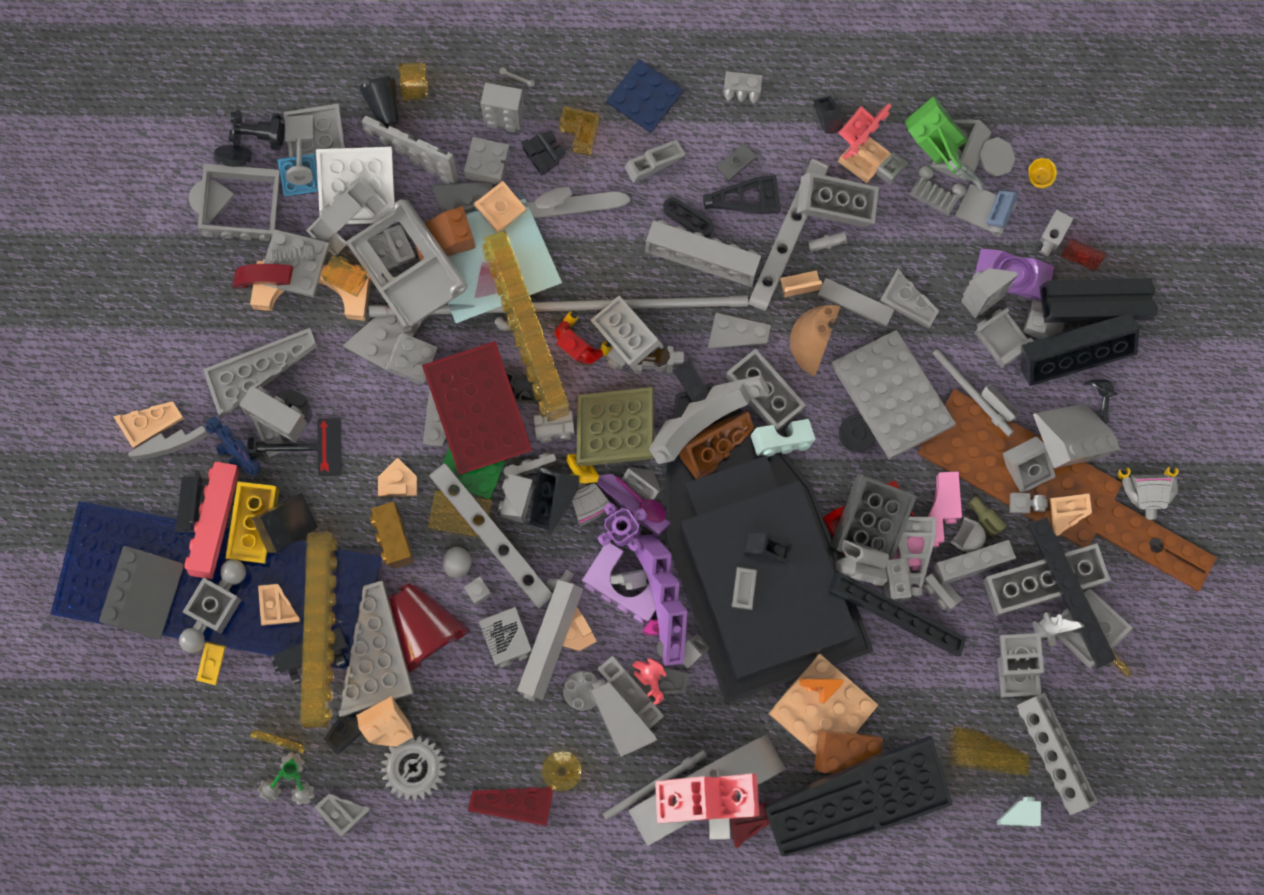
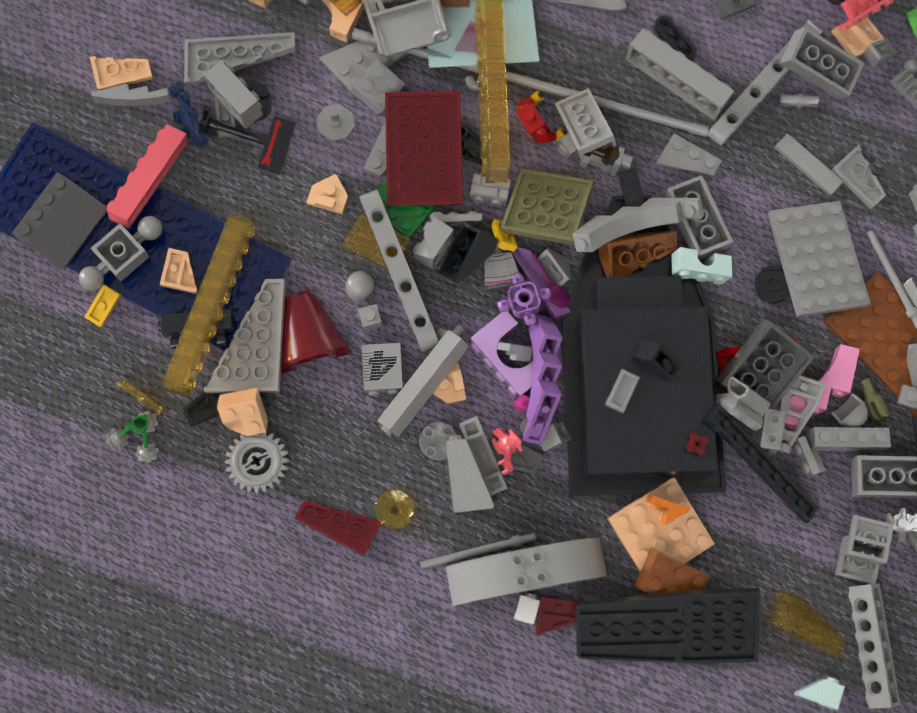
camera: 15 degrees right, 0 degrees up
(189, 503) = (131, 154): black panel -> none
(244, 539) = (183, 188): yellow slope -> none
(284, 523) = (212, 198): black slope -> none
(340, 813) = (176, 482): light grey wing -> none
(380, 405) = (335, 122): none -> light grey piece
(391, 535) = (306, 241): pearl gold brick -> none
(707, 798) = (524, 577): coral bracket -> none
(768, 196) = (756, 41): black plate -> none
(800, 283) = (762, 131): light nougat panel -> none
(811, 336) = (758, 179): medium nougat cone -> none
(826, 621) = (691, 447): none -> dark red plate

